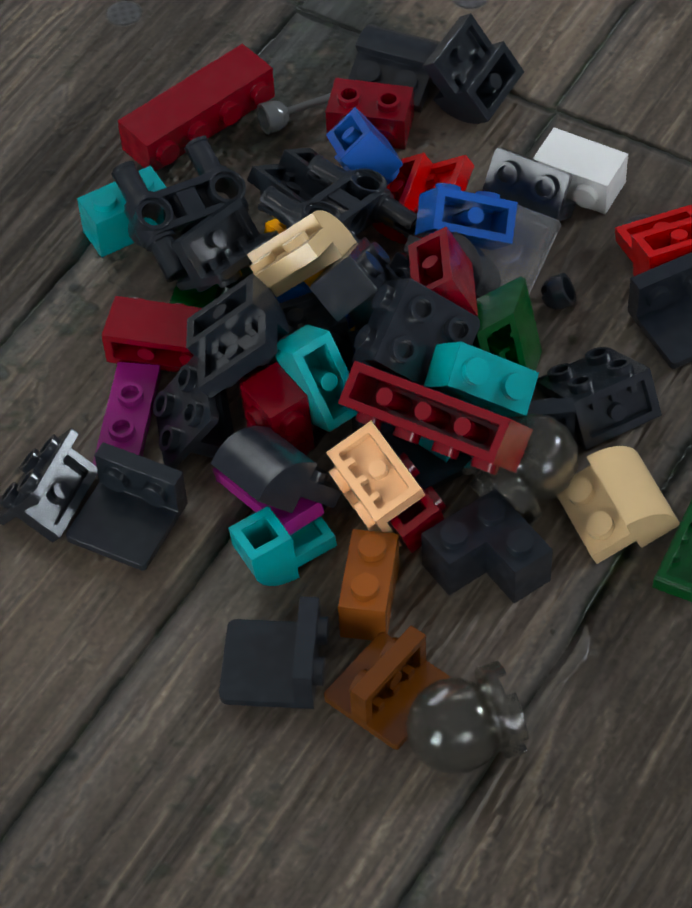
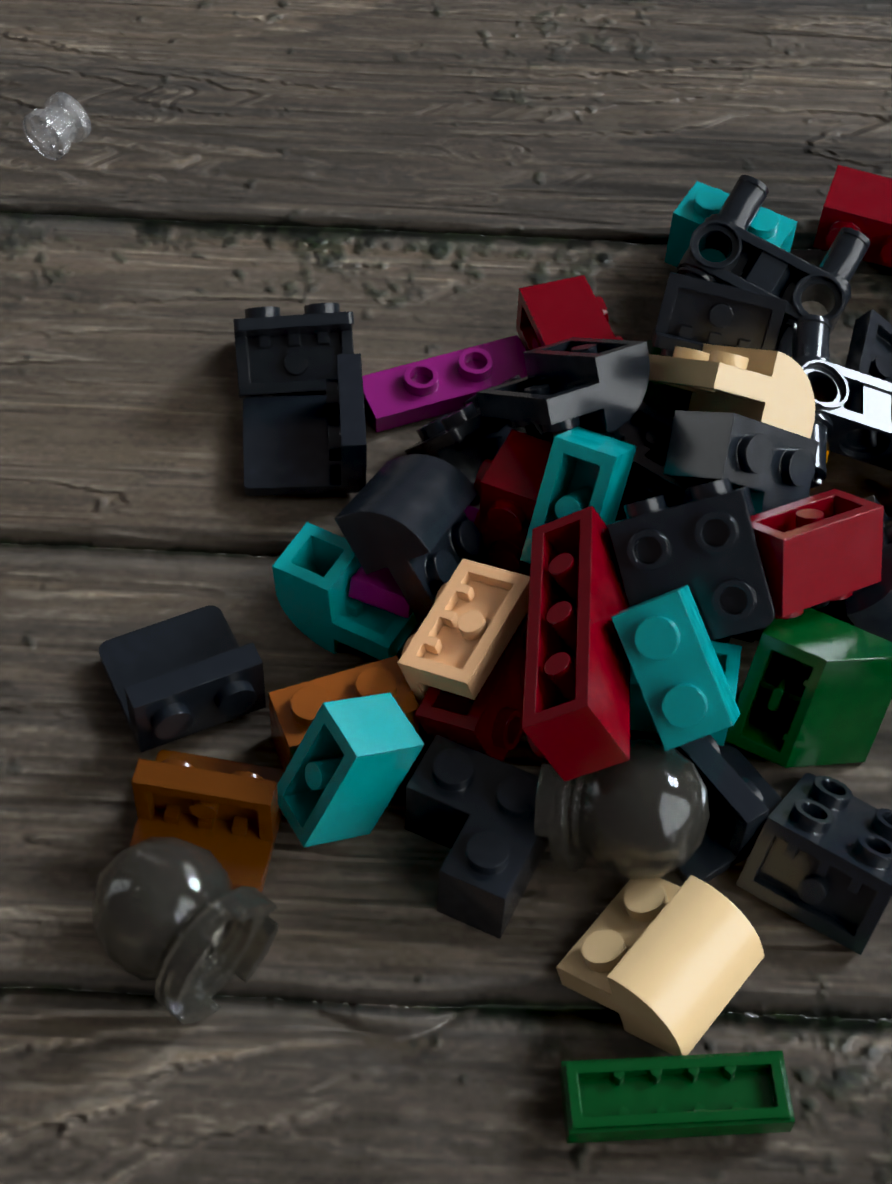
camera: 55 degrees right, 0 degrees up
(419, 585) = (347, 768): none -> teal brick

